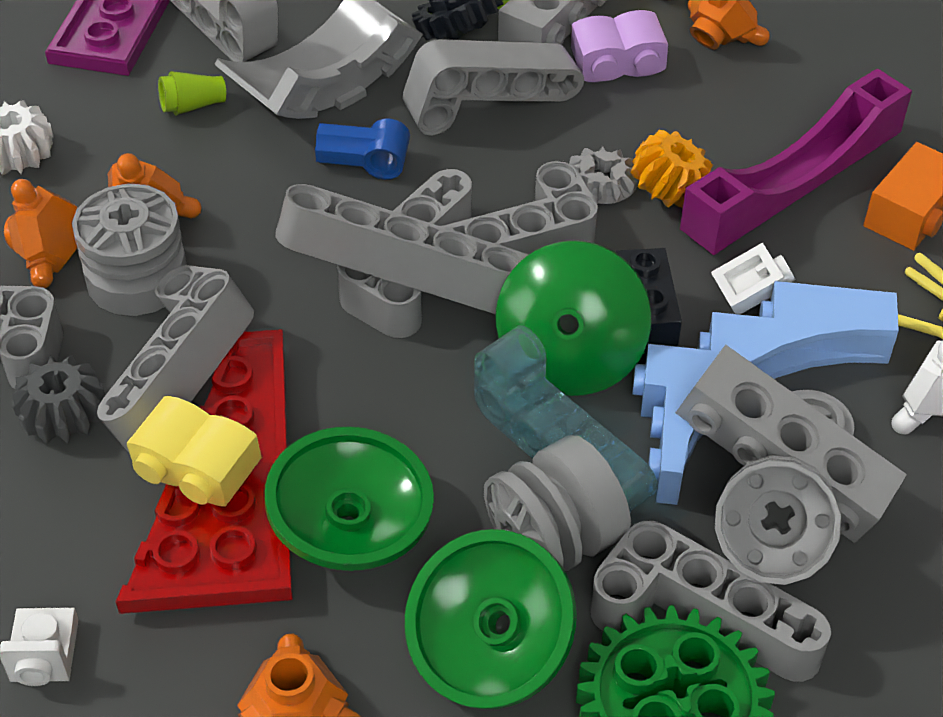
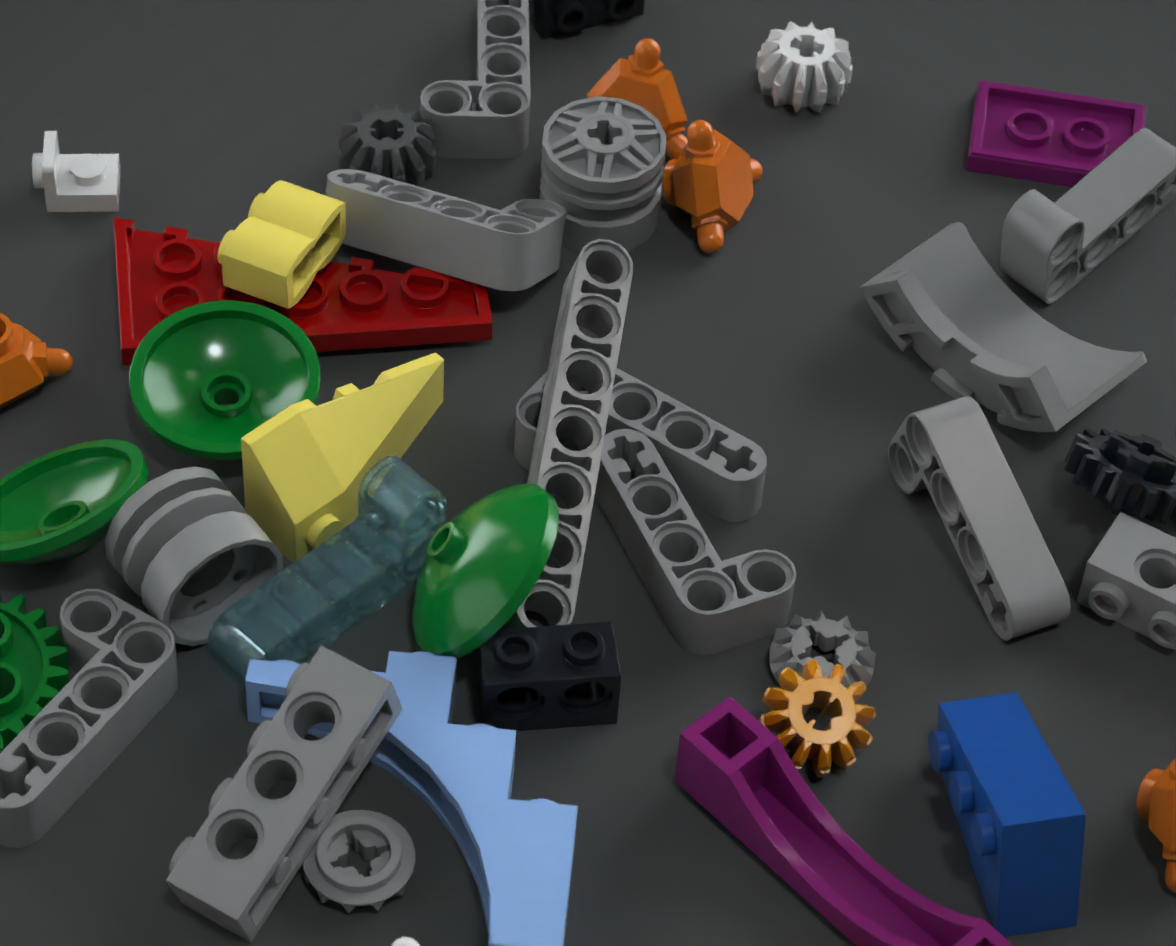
camera: 85 degrees right, 0 degrees up
(188, 92) = (914, 208): lime cone -> none
(376, 148) = (833, 398): blue piece -> none
(449, 437) = (311, 459): none -> light yellow wedge
(619, 46) = (1099, 679): lavender brick -> none
(733, 86) = (1012, 812): none -> blue wedge
(751, 278) = (615, 817): white bracket -> none
(767, 550) = (148, 748): light grey wheel -> none

